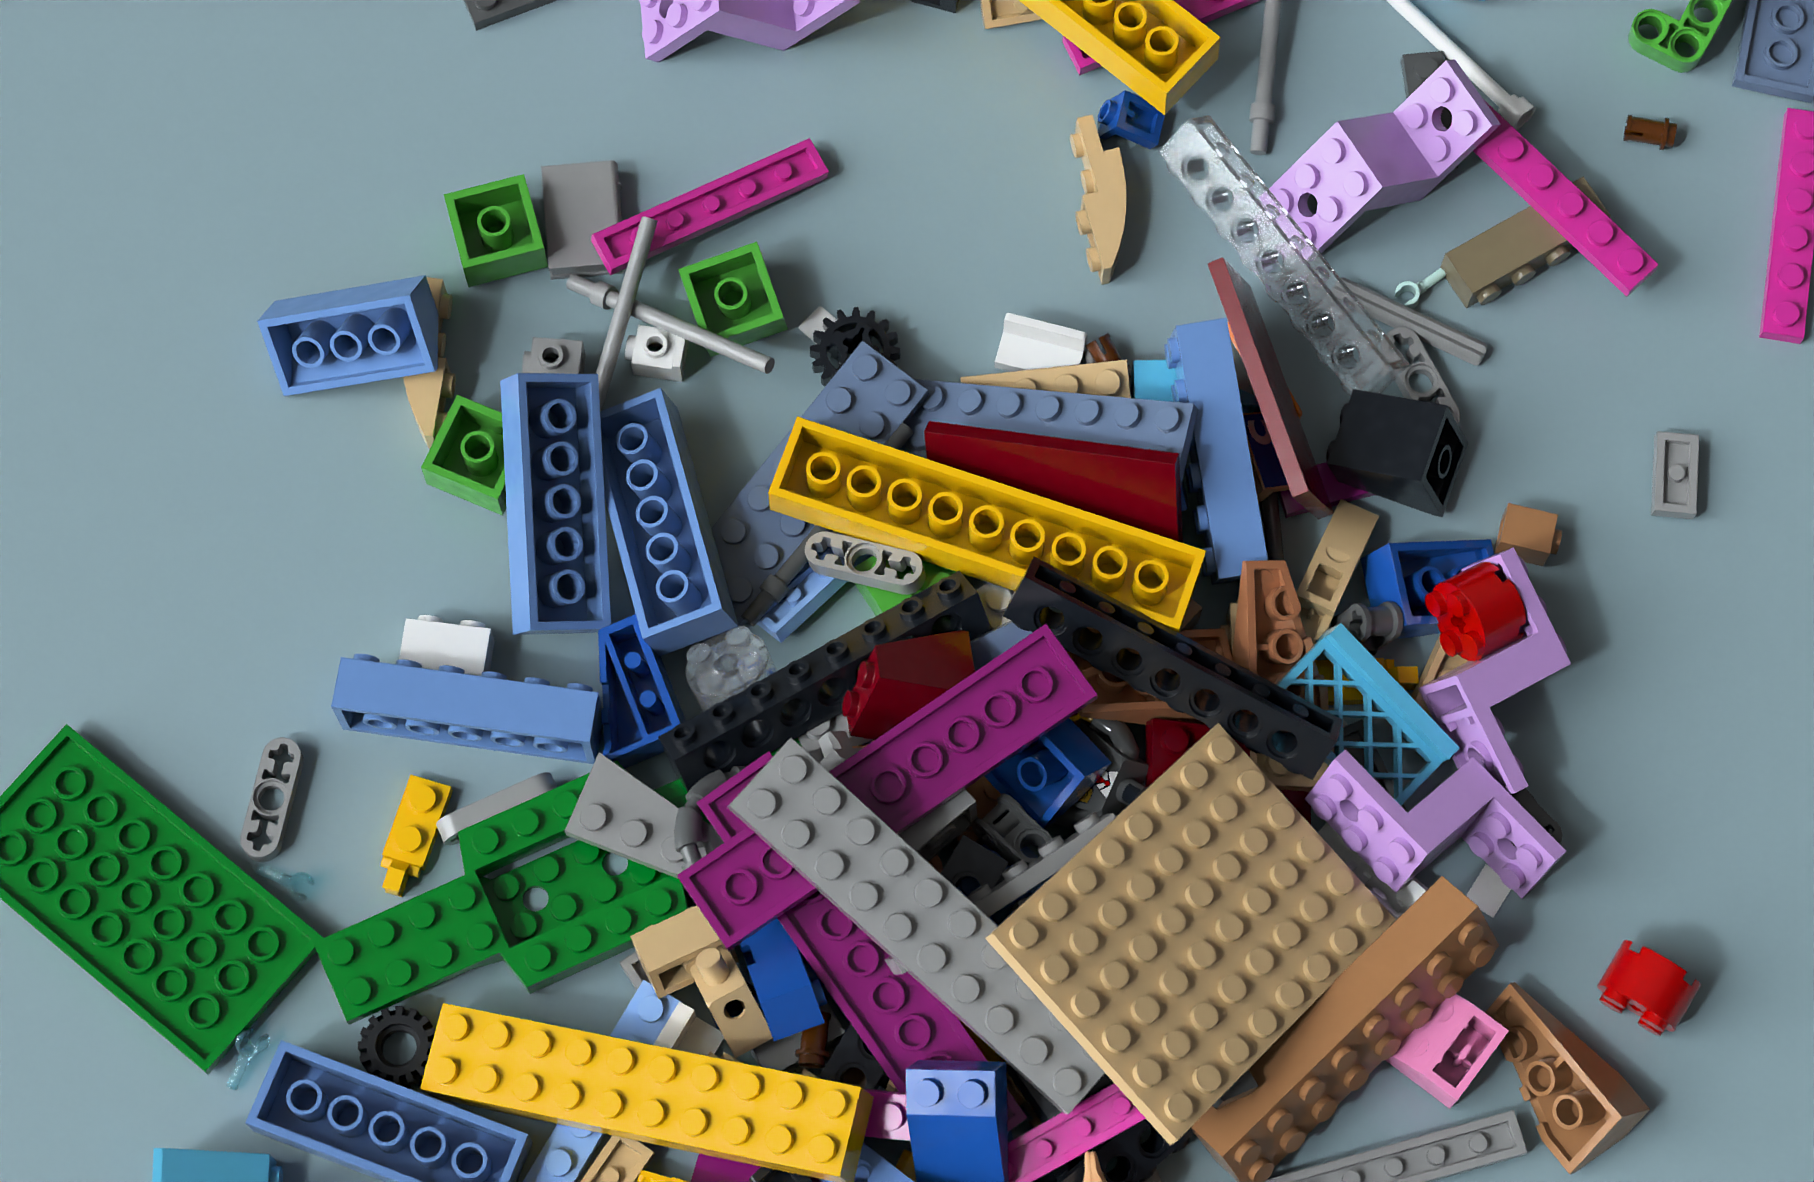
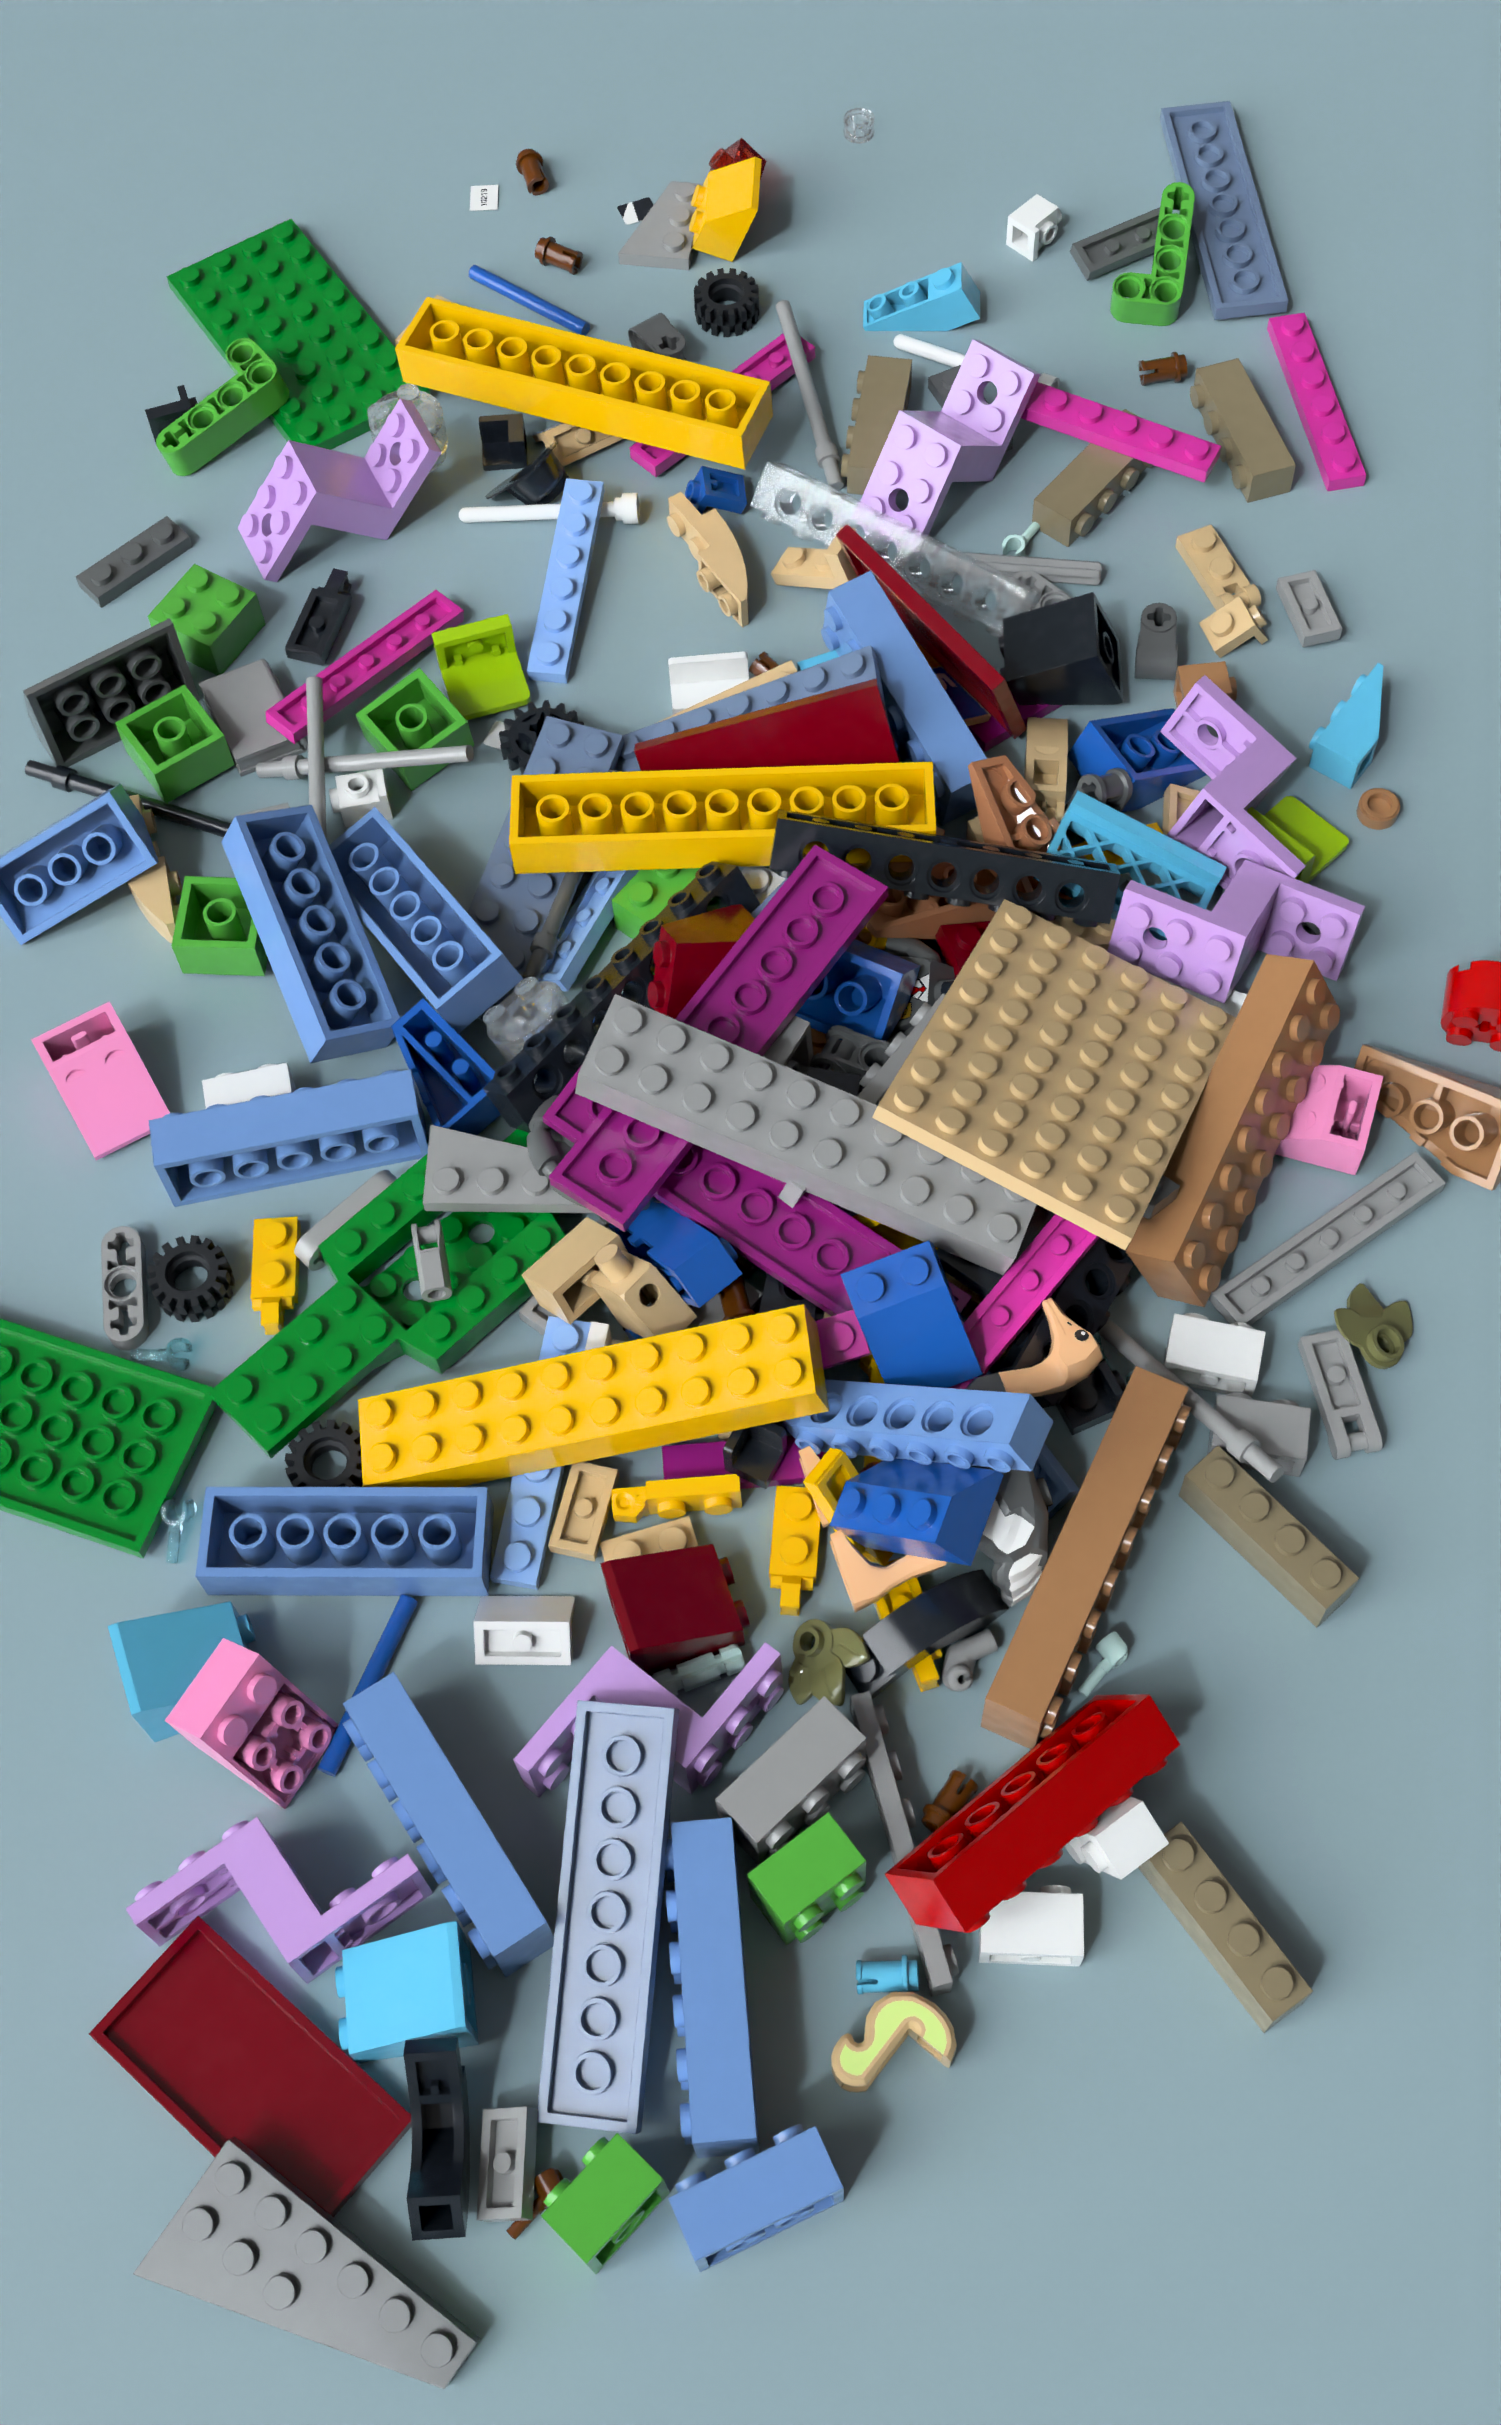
camera: 15 degrees left, 10 degrees down
(315, 581) = (101, 1079): none -> bright pink slope
(334, 789) = (181, 1258): none -> black tyre
(383, 226) = (69, 780): none -> black bar
(449, 161) = (80, 705): none -> dark grey slope
(553, 896) = (432, 1262): none -> light grey bar
(572, 92) = (210, 618): none -> bright green brick
(685, 130) = (320, 620): none -> black hinge
(823, 249) = (481, 667): none -> lime bracket
(852, 548) = (594, 902): light grey beam -> none
(943, 172) = (566, 581): none -> light blue plate
(951, 39) = (536, 482): none -> black piece
(1032, 104) = (622, 508): none -> white piece
(1195, 246) = (814, 567): none -> tan bracket
(1330, 90) = (883, 391): none -> dark tan brick
(1476, 612) = (1192, 746): red brick -> none
(1501, 467) = (1157, 643): none -> dark grey piece
(1546, 733) = (1303, 834): none -> lime bracket
(1590, 469) = (1233, 626): none -> tan bracket
(1603, 395) = (1215, 568): none -> tan plate
(1645, 726) = (1378, 808): none -> medium nougat tile
(1648, 644) = (1350, 739): none -> medium azure slope
(1698, 238) = (1243, 429): none -> dark tan brick

